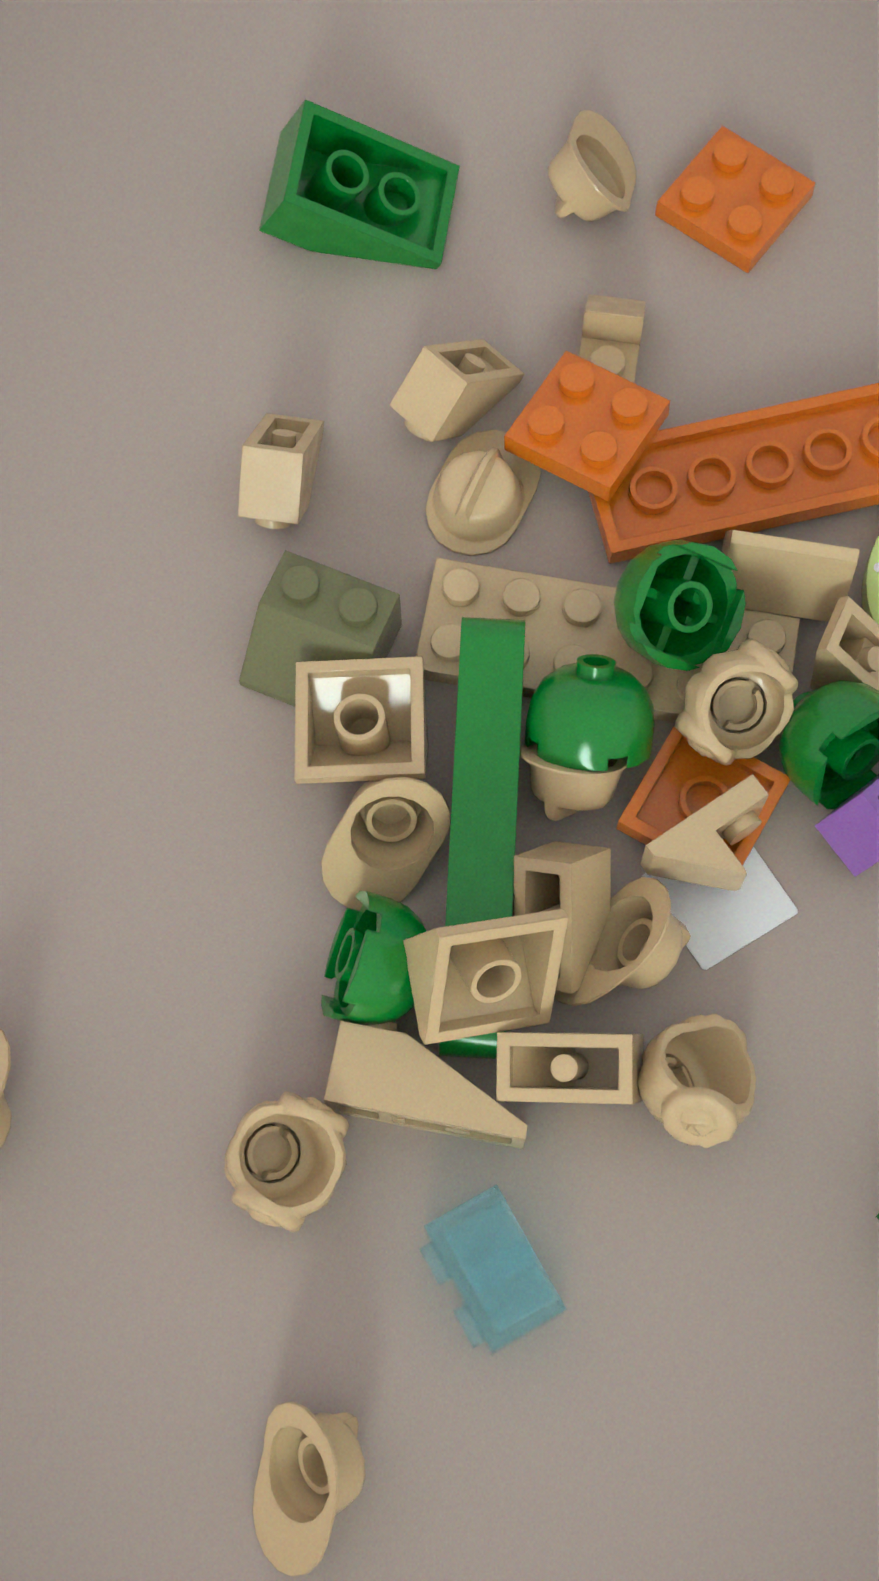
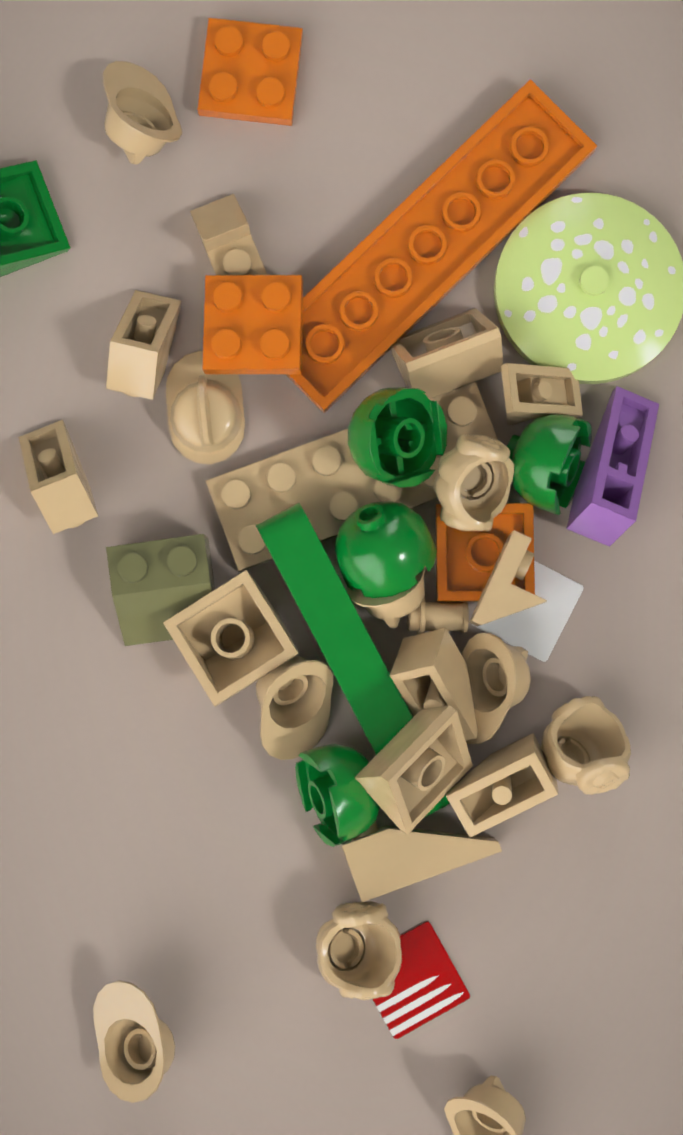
camera: 30 degrees left, 15 degrees up
(334, 1256) = (424, 984): none -> red sticker
(492, 1271) = (526, 940): clear light blue brick -> none
(595, 830) = (439, 615): none -> tan pin

